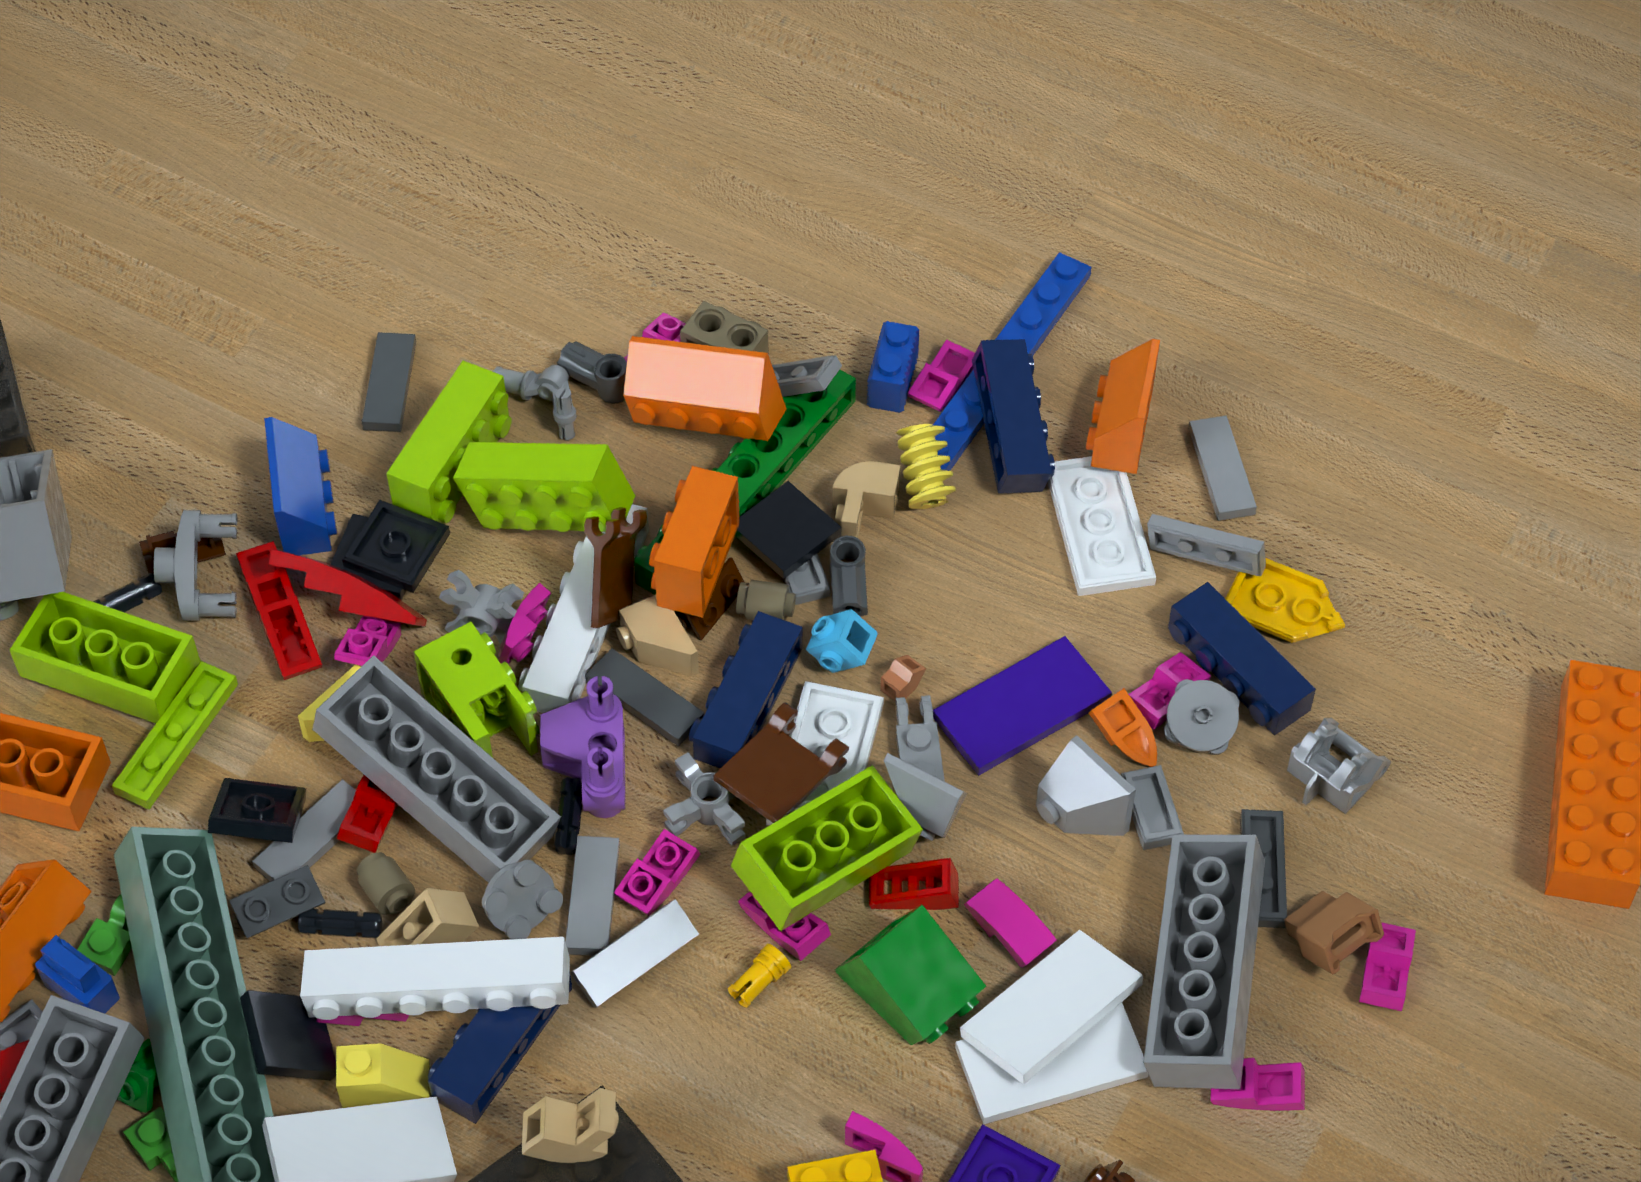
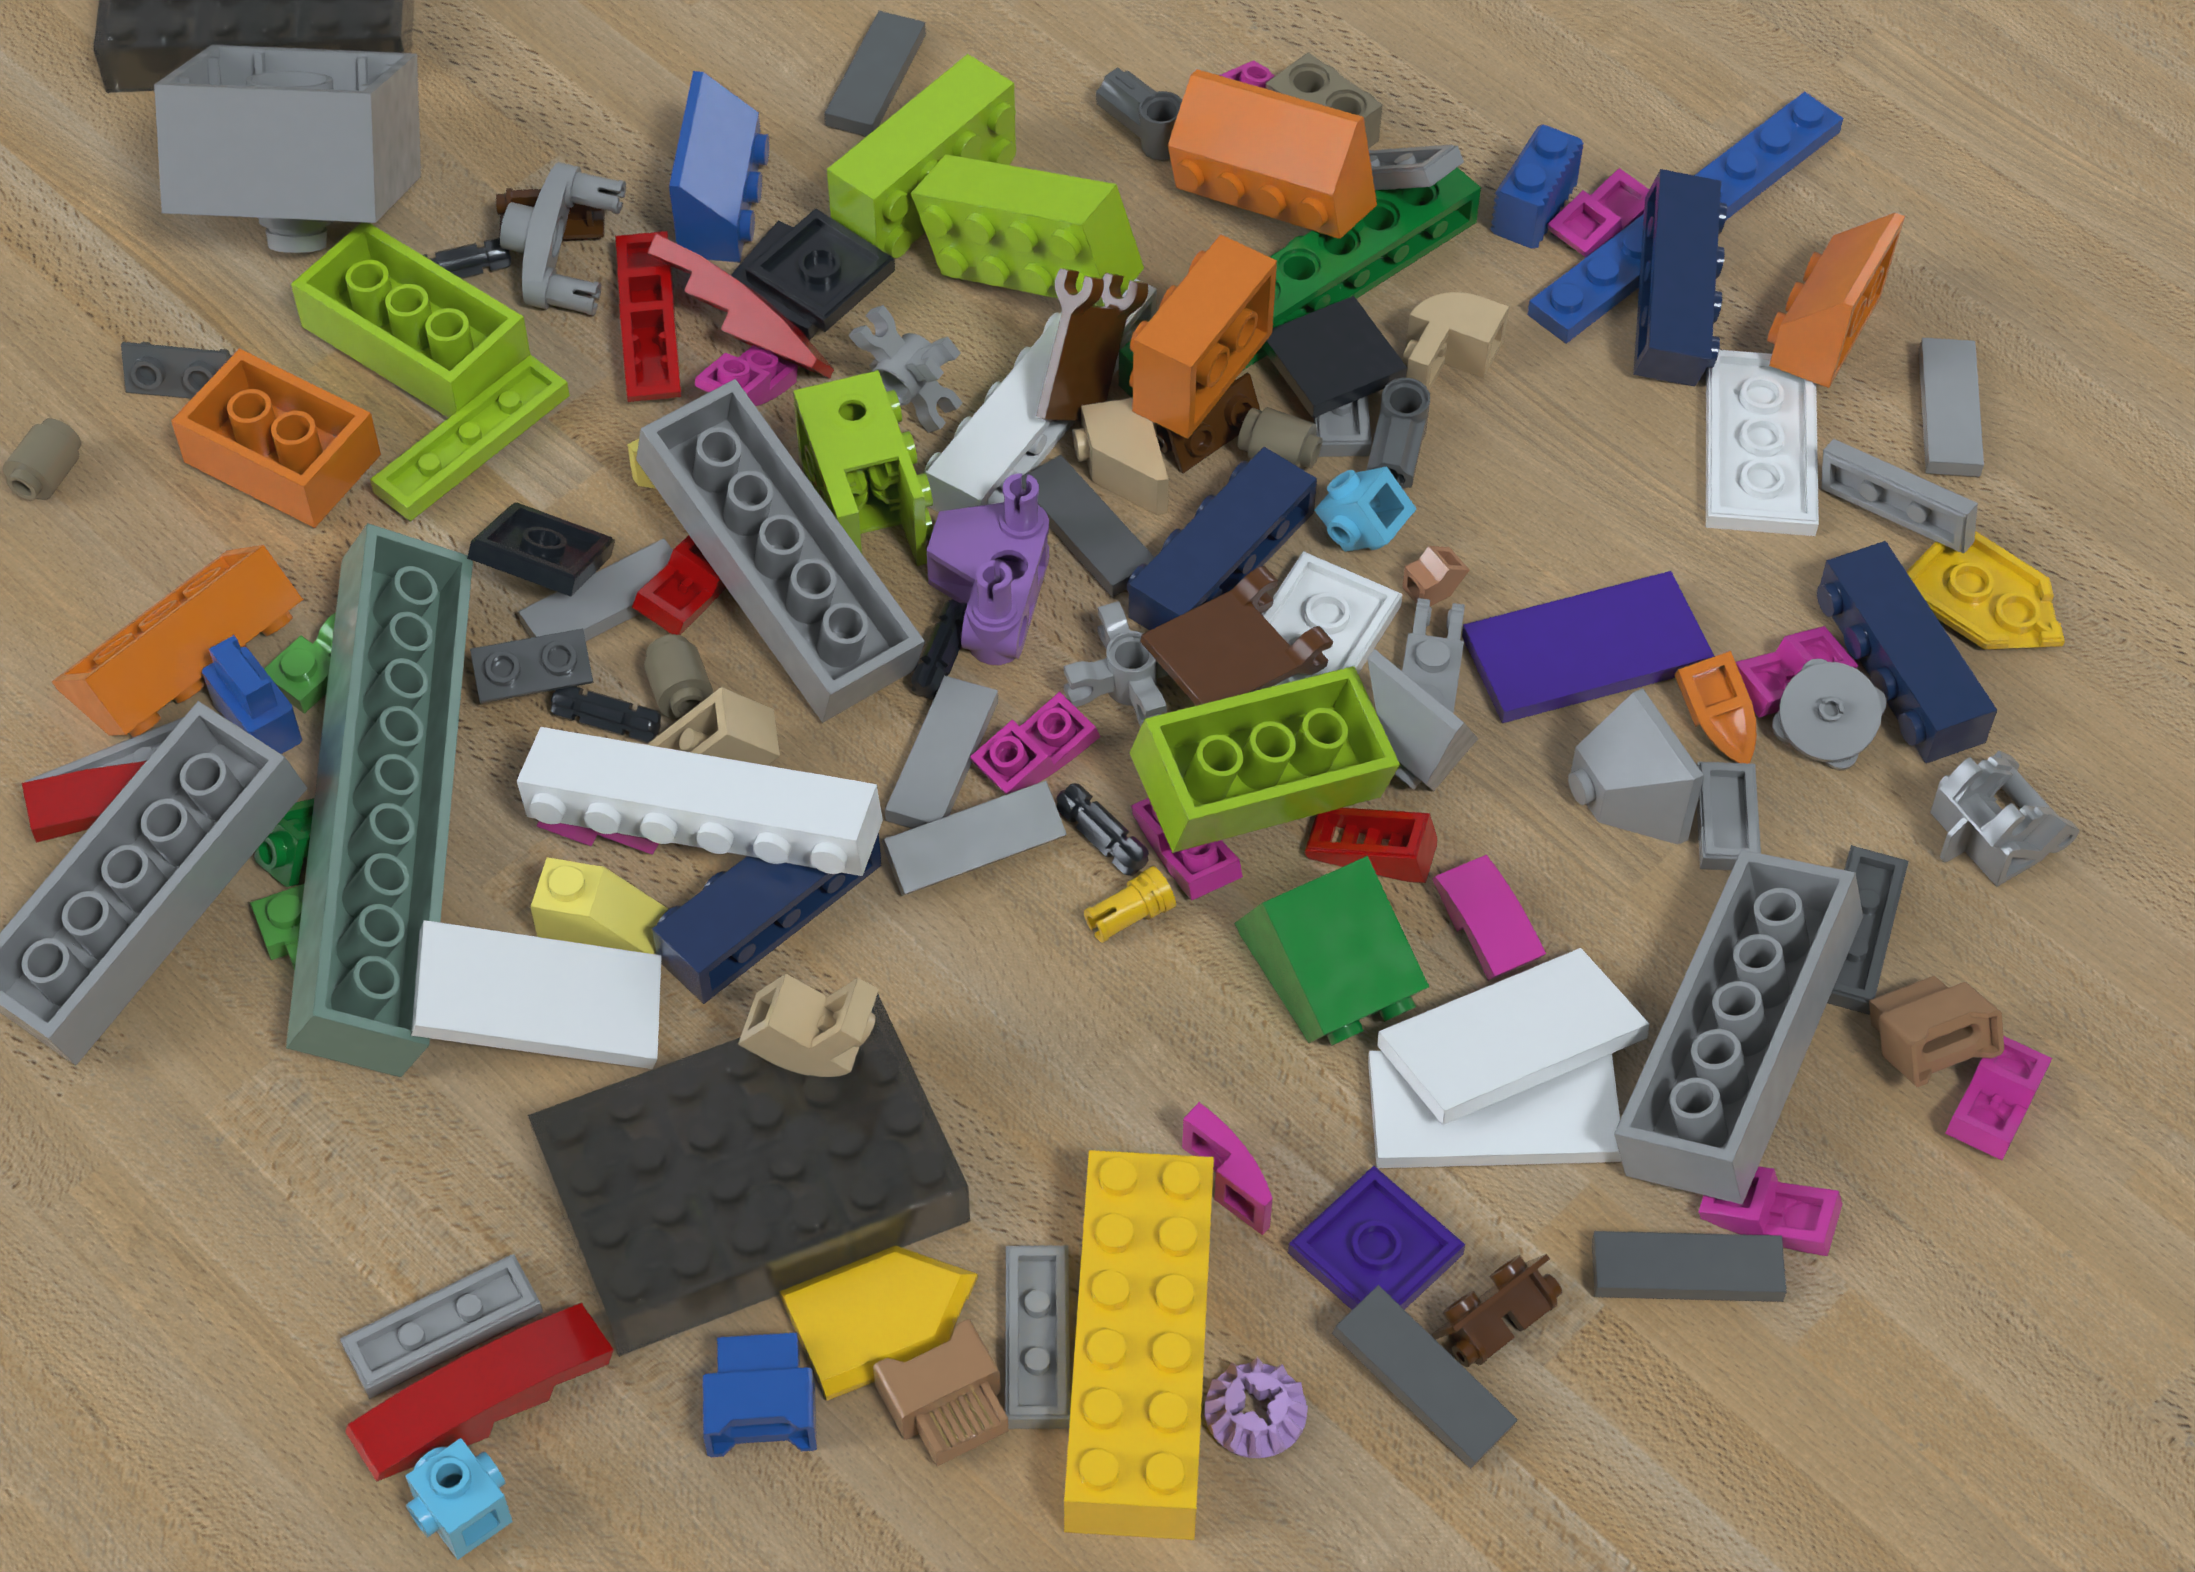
camera: 15 degrees right, 0 degrees up
(286, 1038) = (488, 832): black tile -> none
(520, 898) = (844, 731): light grey piece -> none
(529, 614) = (955, 389): dark pink slope -> none
(550, 385) = (1079, 119): light grey pin -> none
(722, 923) = (1102, 829): none -> black axle
(924, 465) = (1540, 314): light yellow piece -> none
(1214, 1141) = (1688, 1266): none -> dark grey tile

